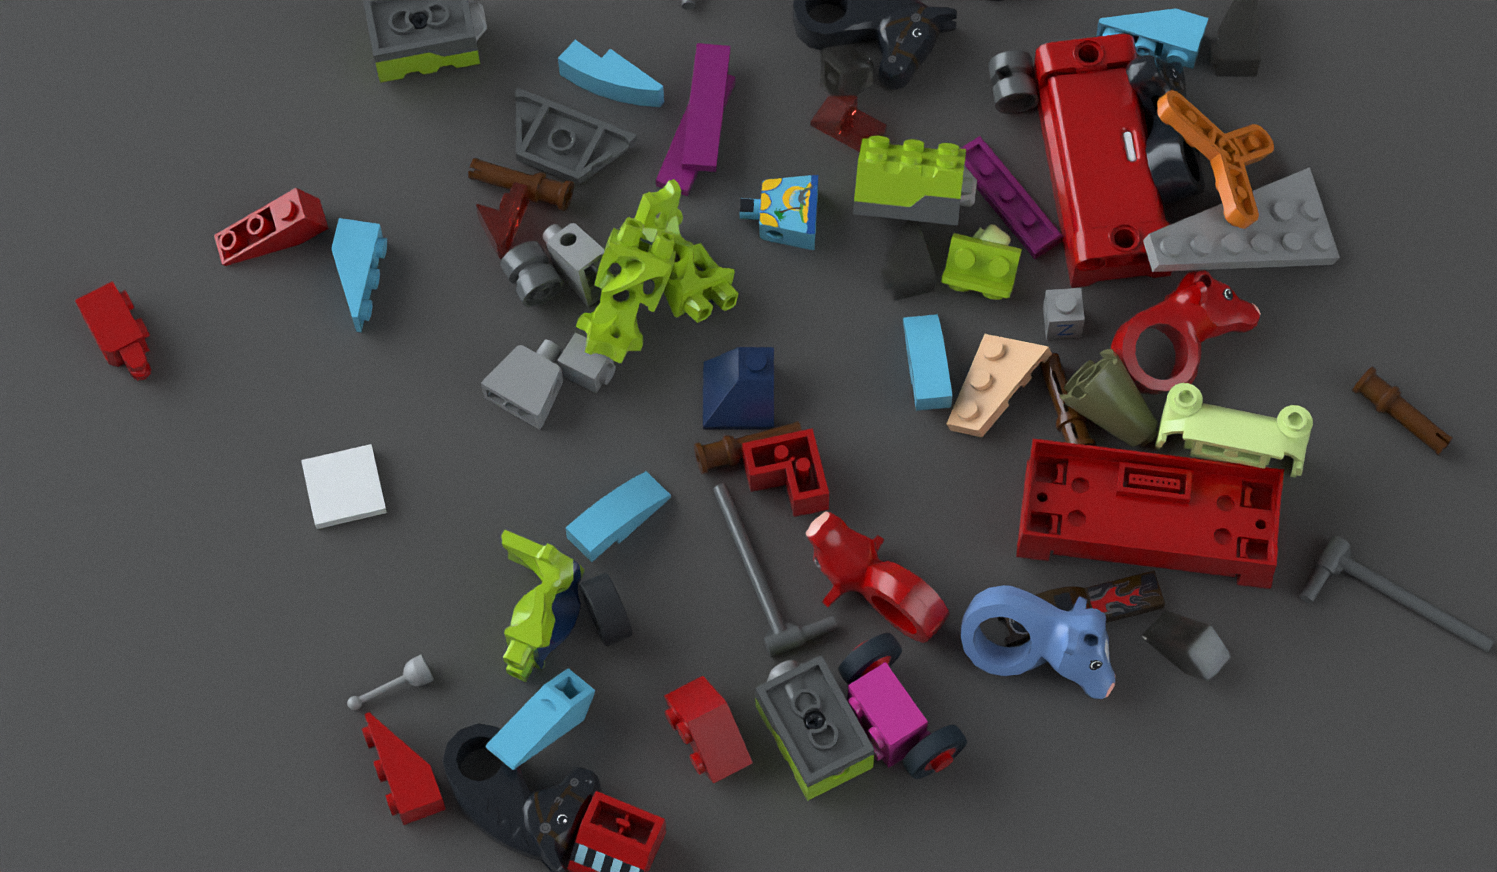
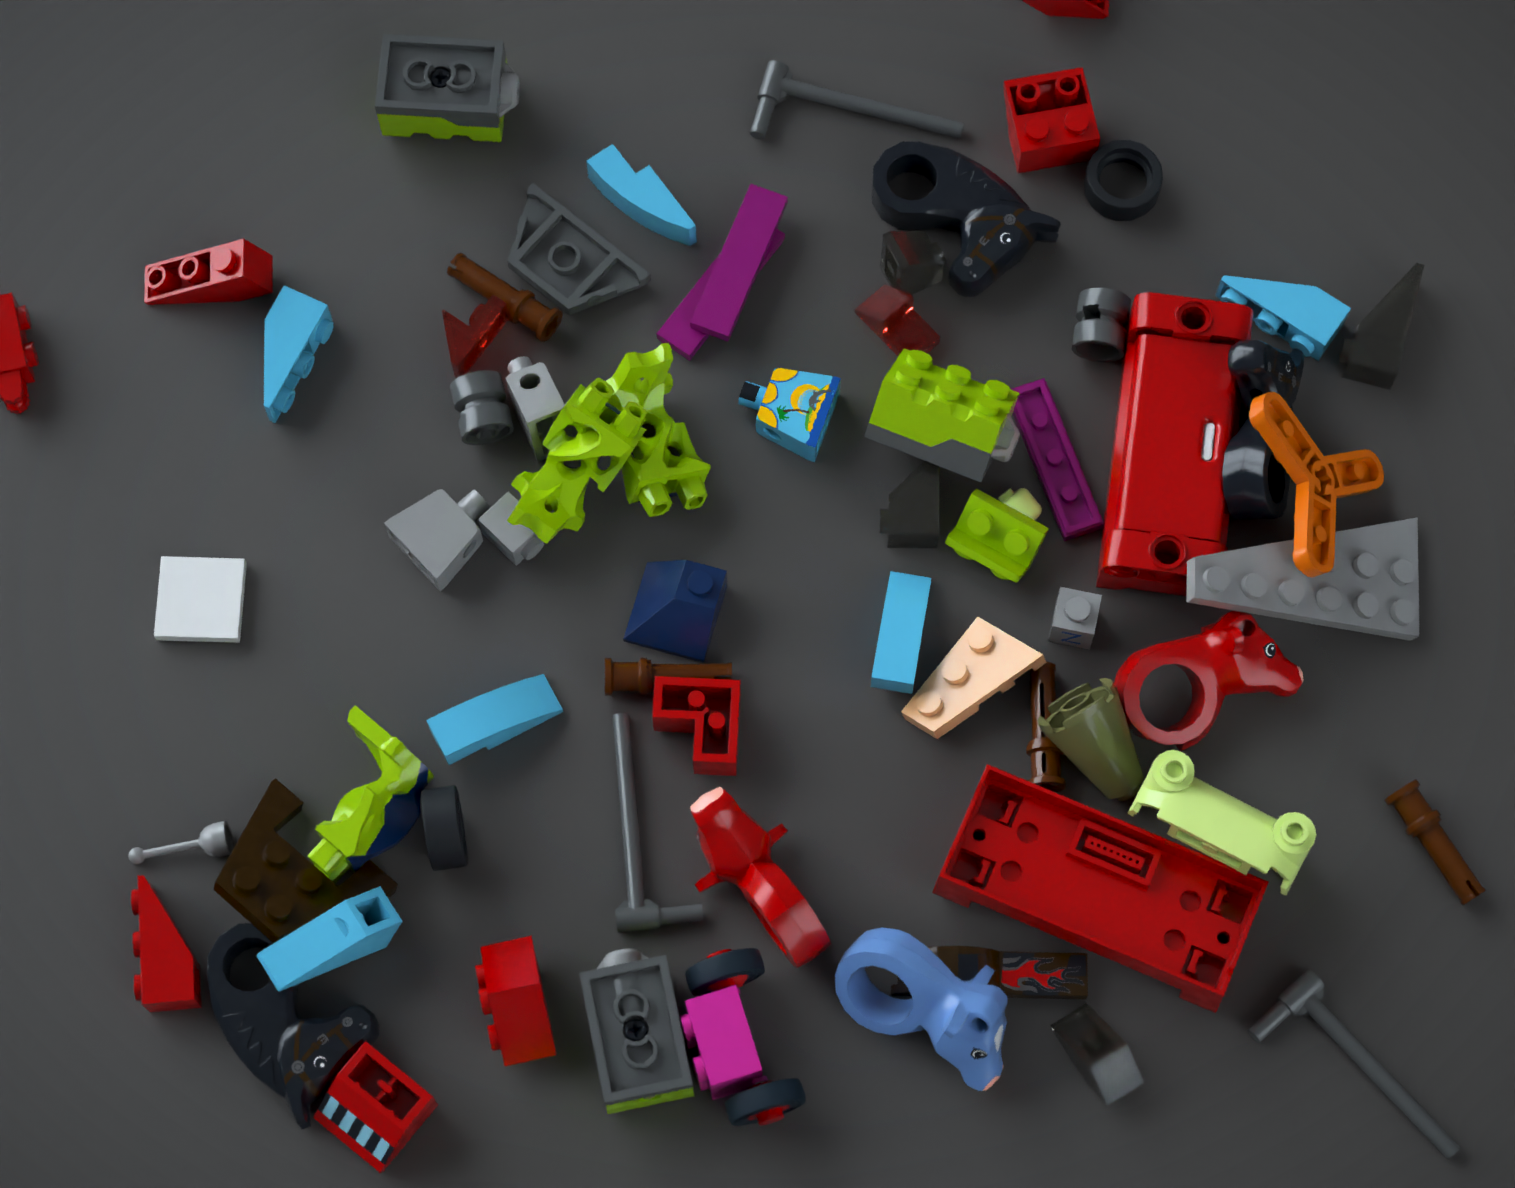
camera: 15 degrees right, 5 degrees up
(479, 689) = (275, 882): none -> dark brown wing

